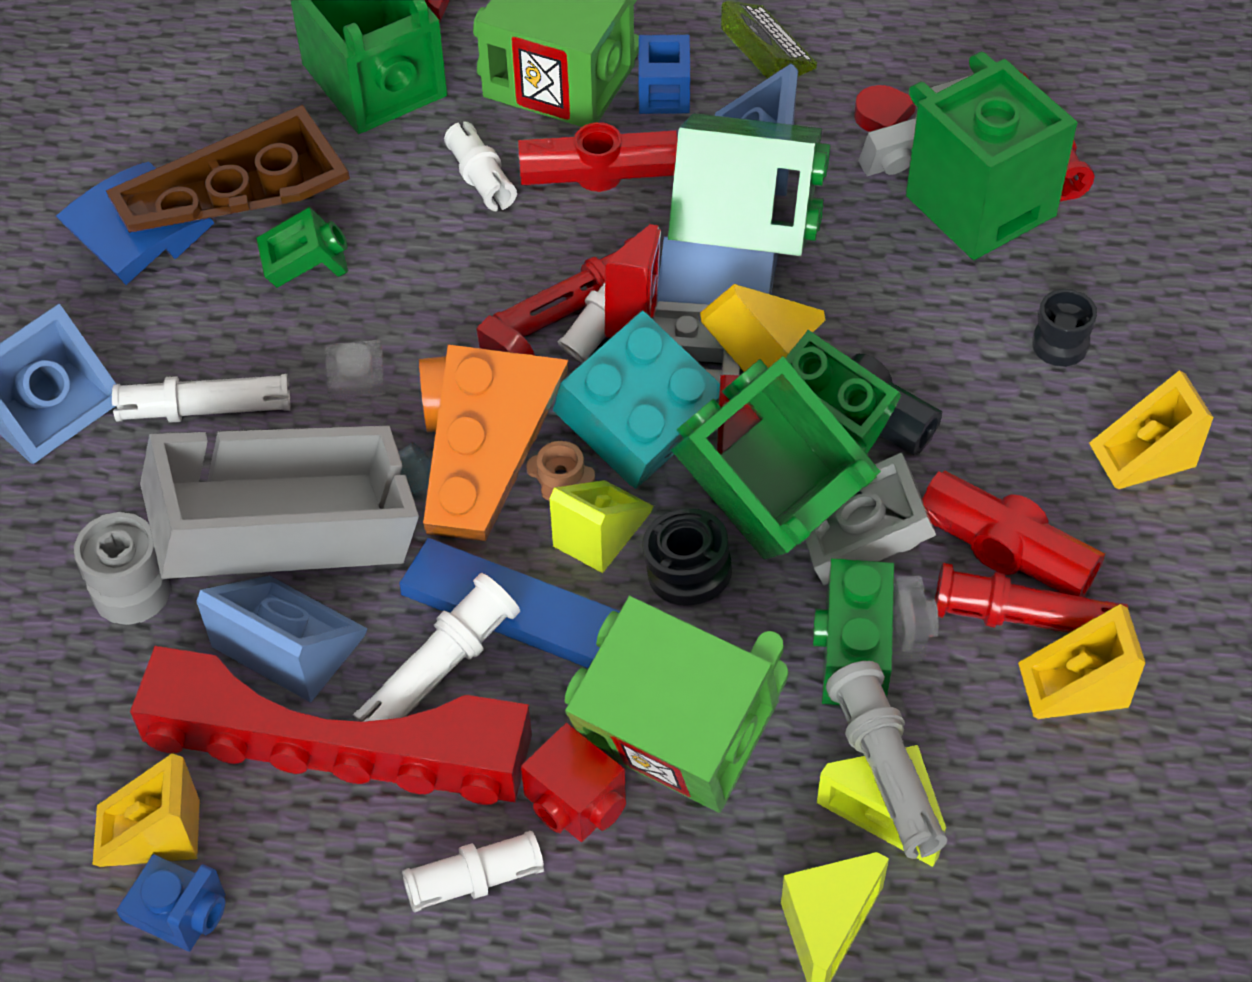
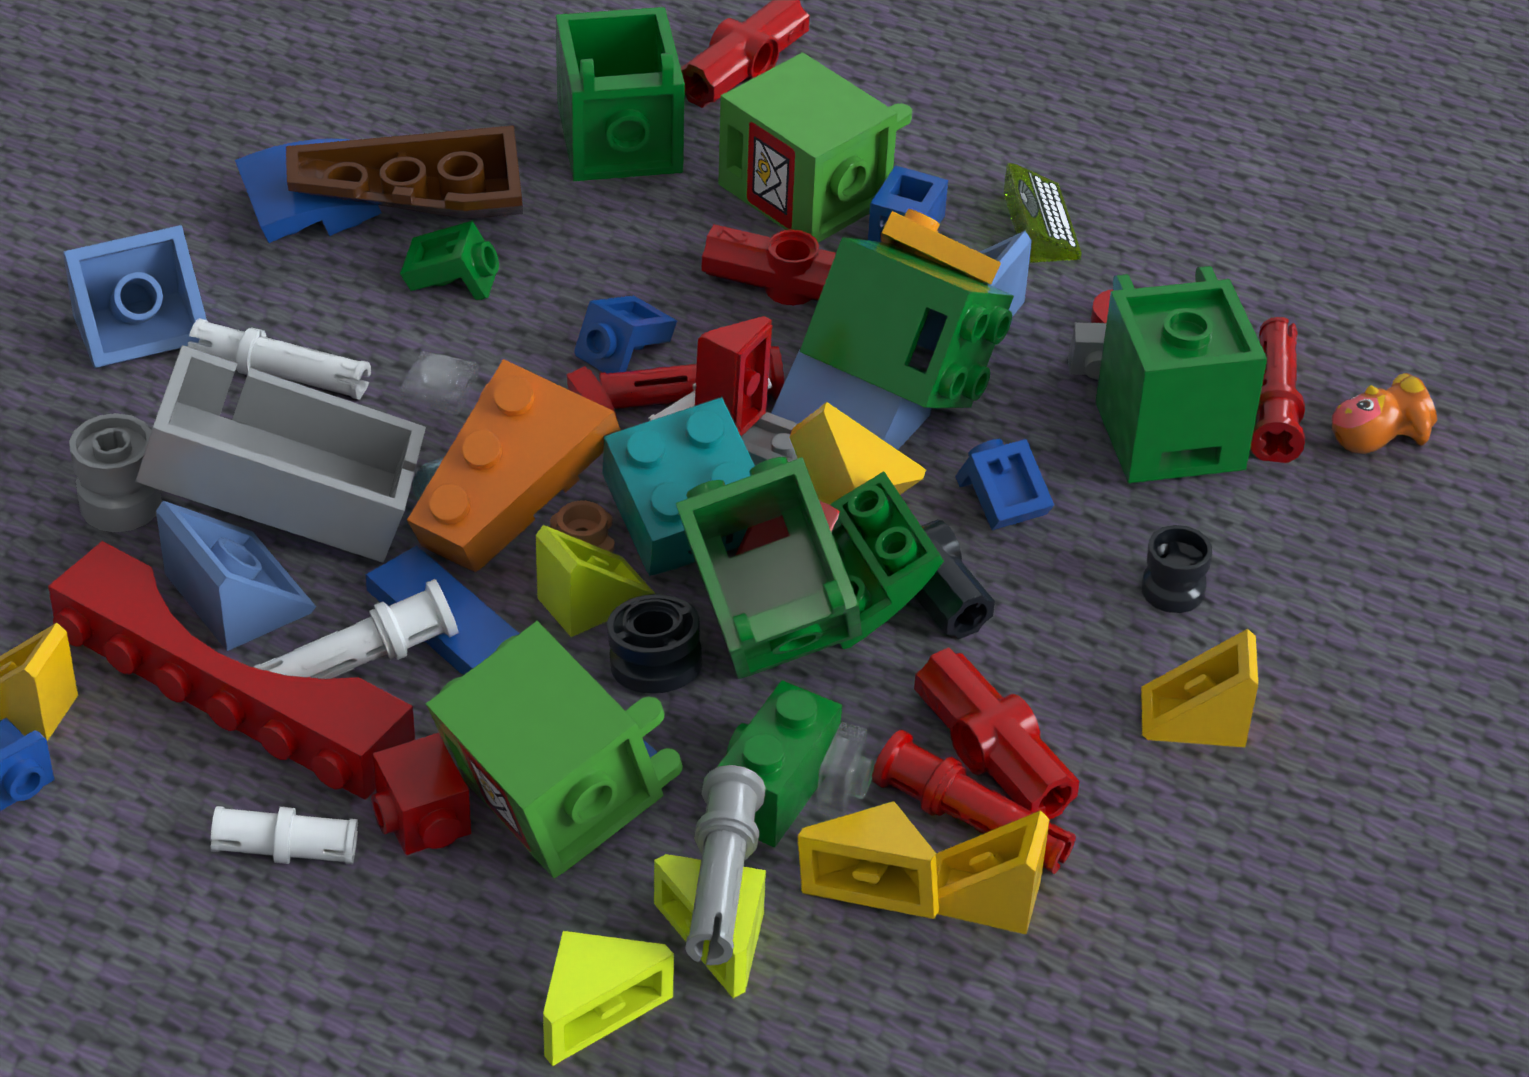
camera: 20 degrees right, 10 degrees down
(480, 166) = (670, 241): white pin -> none
(485, 267) = (617, 328): none -> blue bracket
(720, 99) = (921, 236): none -> light orange wing
(873, 524) = (868, 670): light grey plate -> none
(885, 296) = (1006, 482): none -> blue bracket
(990, 695) = (870, 861): none -> yellow slope
(1137, 132) = (1380, 415): none -> orange animal

